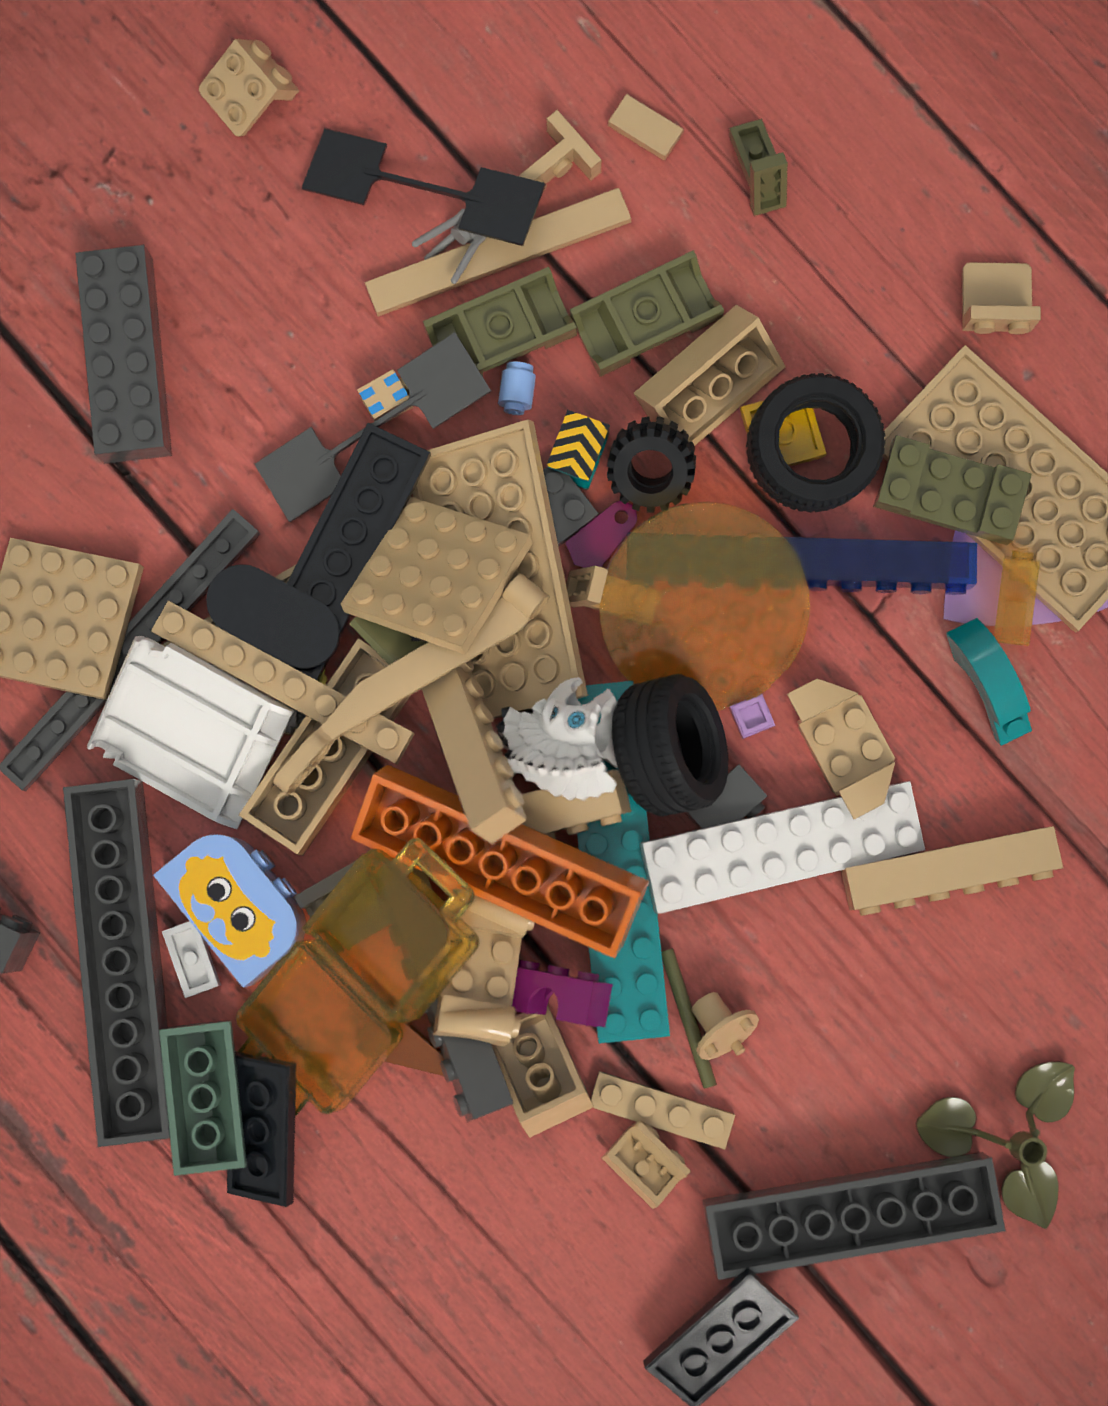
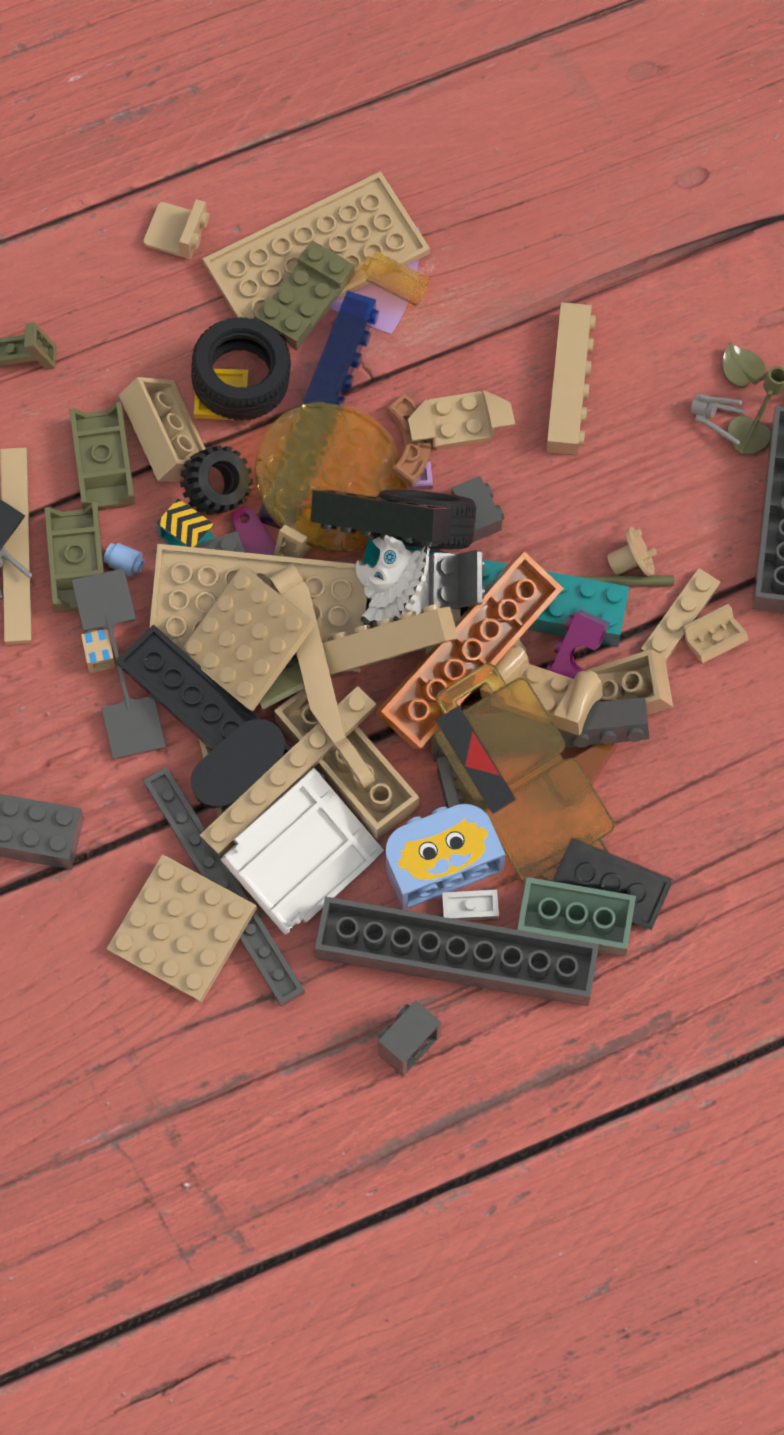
camera: 75 degrees left, 15 degrees down
(350, 913) = (475, 759): none -> black tile
(579, 814) = (456, 579): none -> dark grey bracket
(634, 692) = (381, 515): none -> black brick
(773, 704) = (416, 453): none -> nougat tile
(777, 849) = (519, 478): white plate -> none
(969, 1061) = (706, 406): none -> light grey plant
(994, 678) = (443, 307): teal arch -> none

